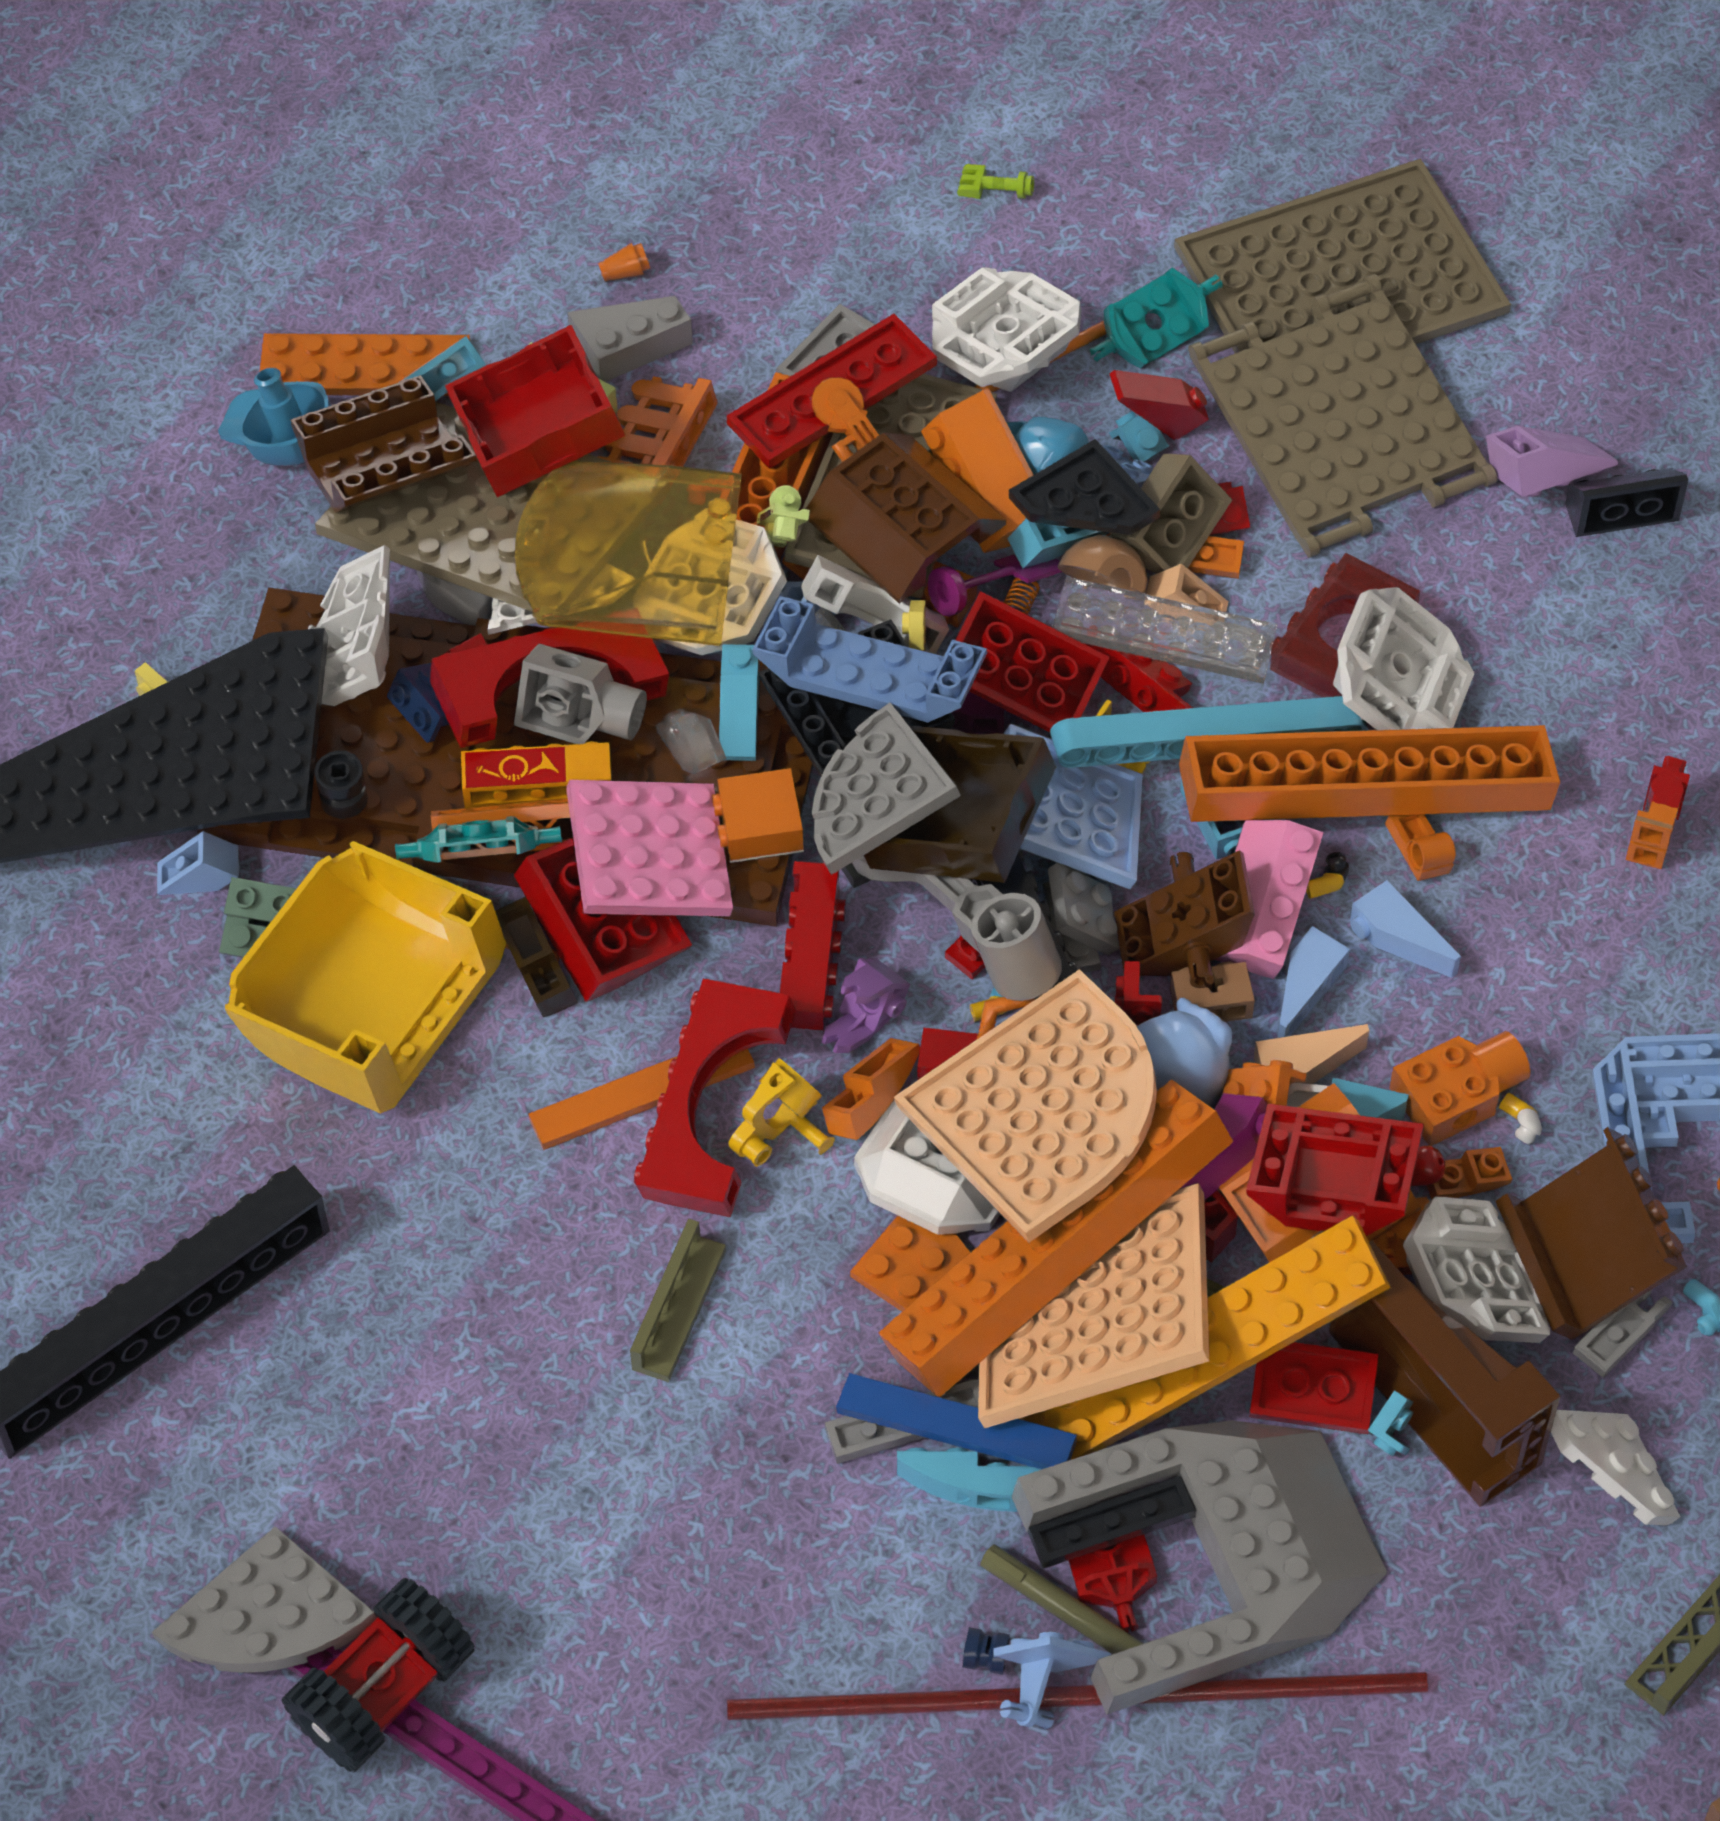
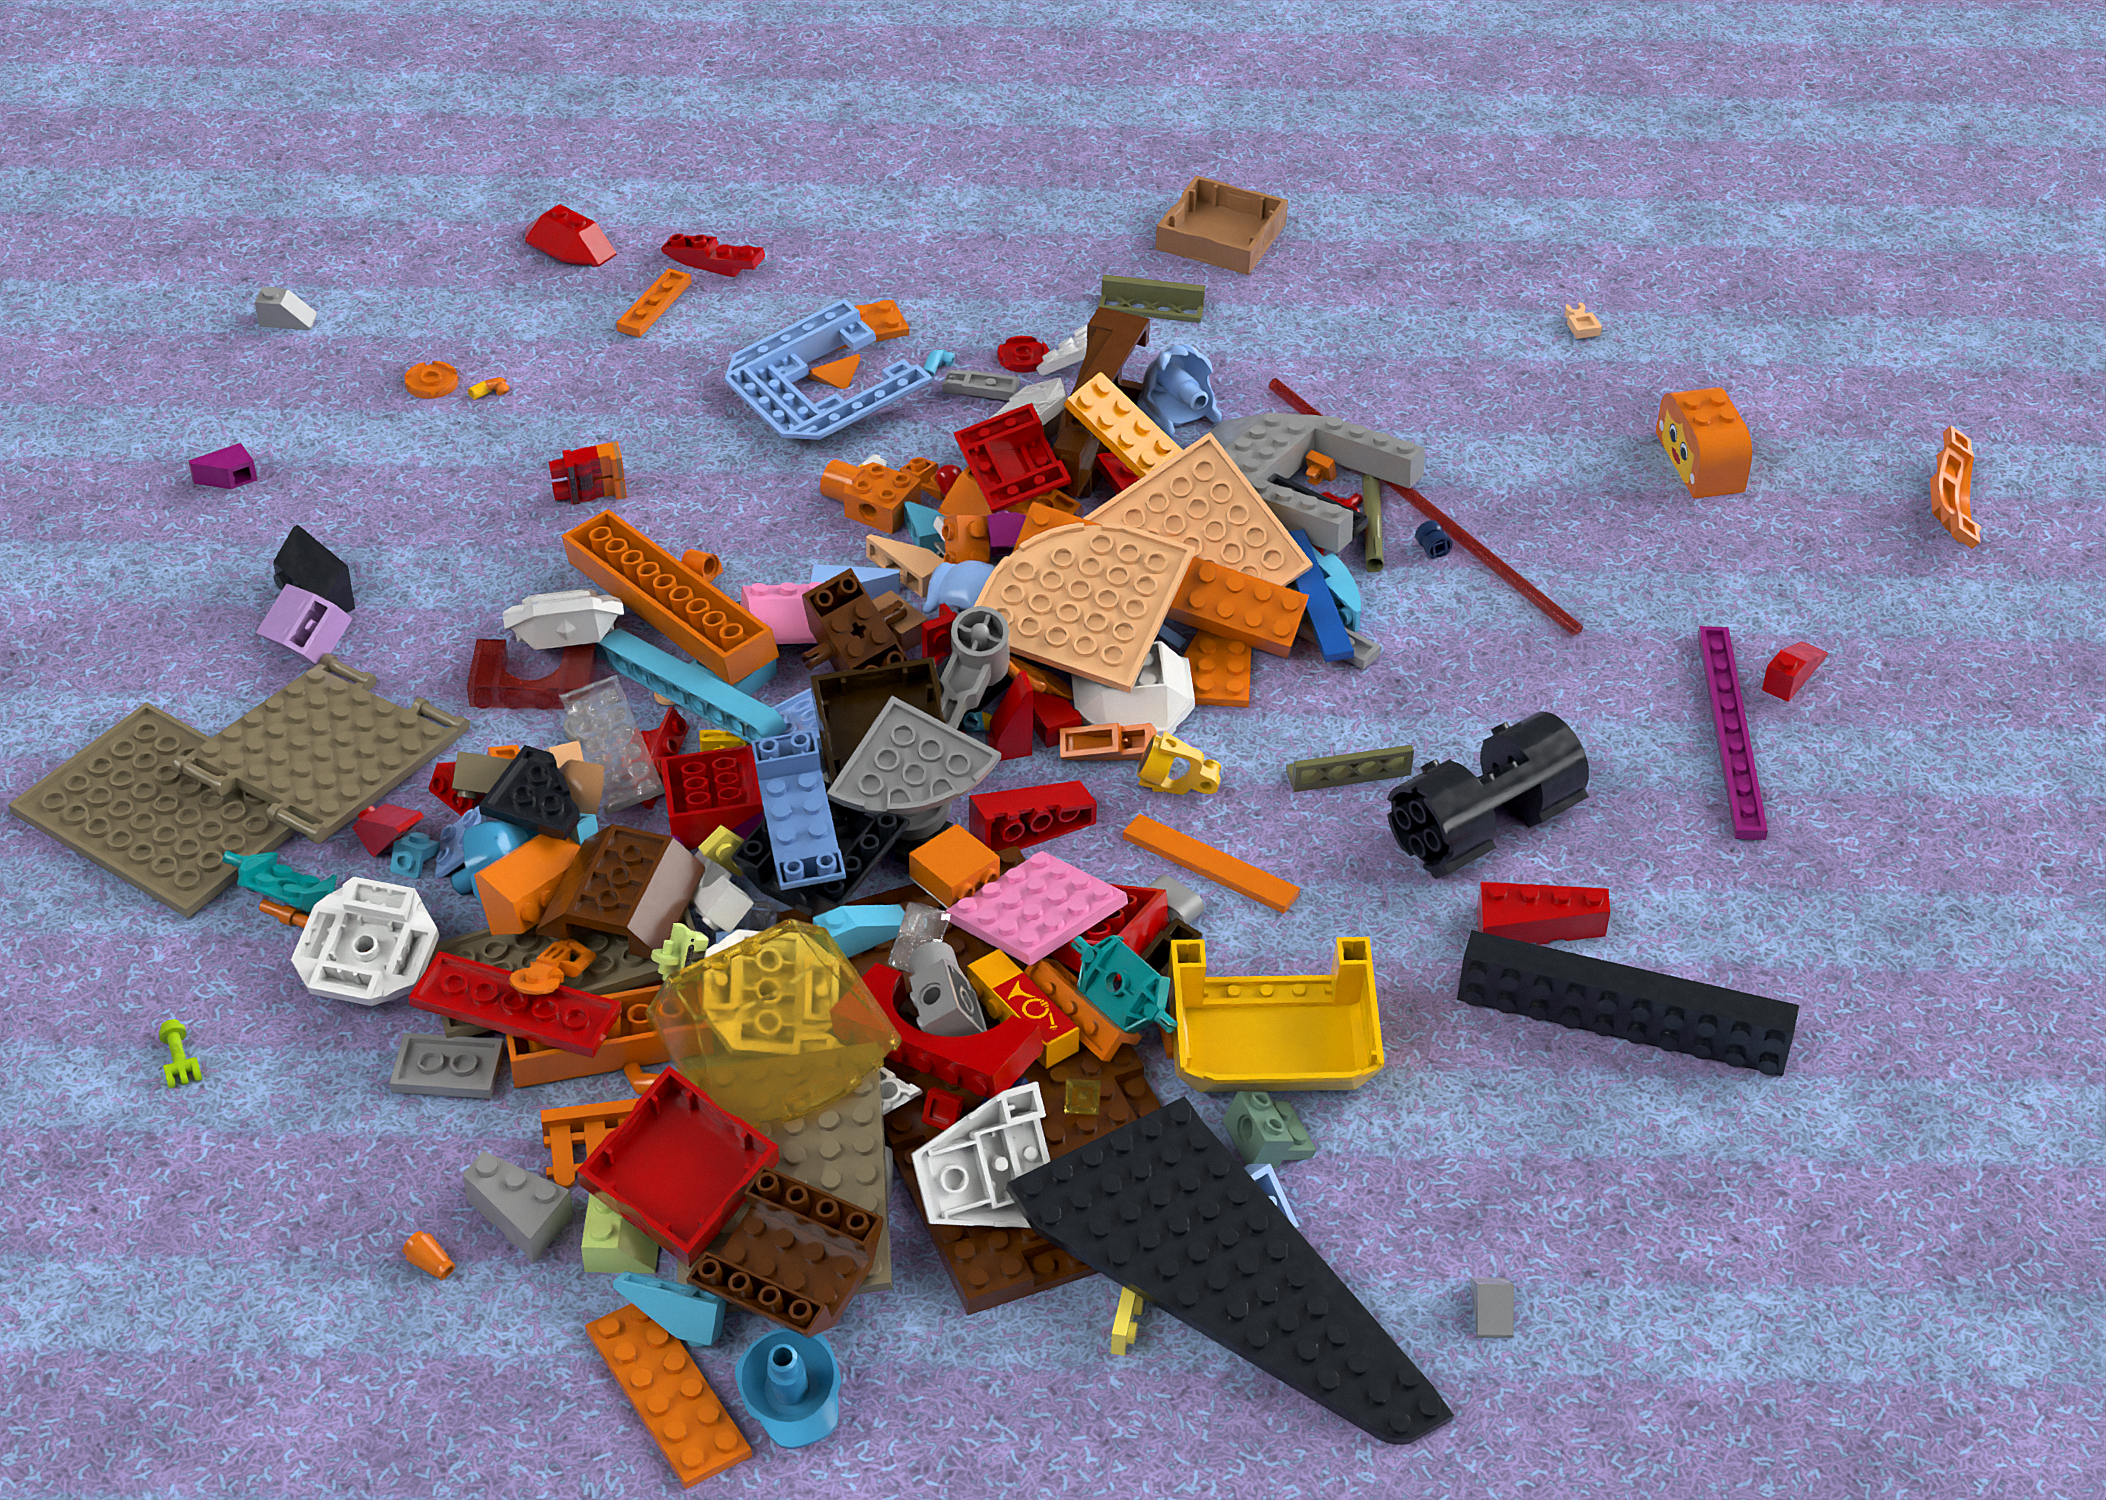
camera: 125 degrees left, 15 degrees down
(265, 1612) = (1748, 845): light grey plate -> none
(335, 1328) = (1542, 912): none -> red wedge
(341, 784) = (1130, 1102): black wheel -> none
(378, 1674) = (1769, 763): black plate -> none
(400, 769) = (1082, 1096): none -> clear yellow slope
(508, 1416) = (1449, 812): none -> black cylinder
(608, 1013) = (1181, 900): none -> light grey beam
(721, 1024) = (1139, 818): red arch -> none
(870, 1001) = (1036, 766): medium lavender piece -> none
(944, 997) = (1013, 721): none -> red slope
(1037, 1660) = (1422, 494): light blue plate -> none
(1205, 1605) = (1320, 468): none -> orange tile
(1399, 928) = (769, 560): light blue slope -> none
(1446, 1519) = (1178, 389): none -> light blue piece
(1593, 1238) = (941, 386): reddish brown panel -> none
(1665, 1431) = (1021, 354): none -> red tile

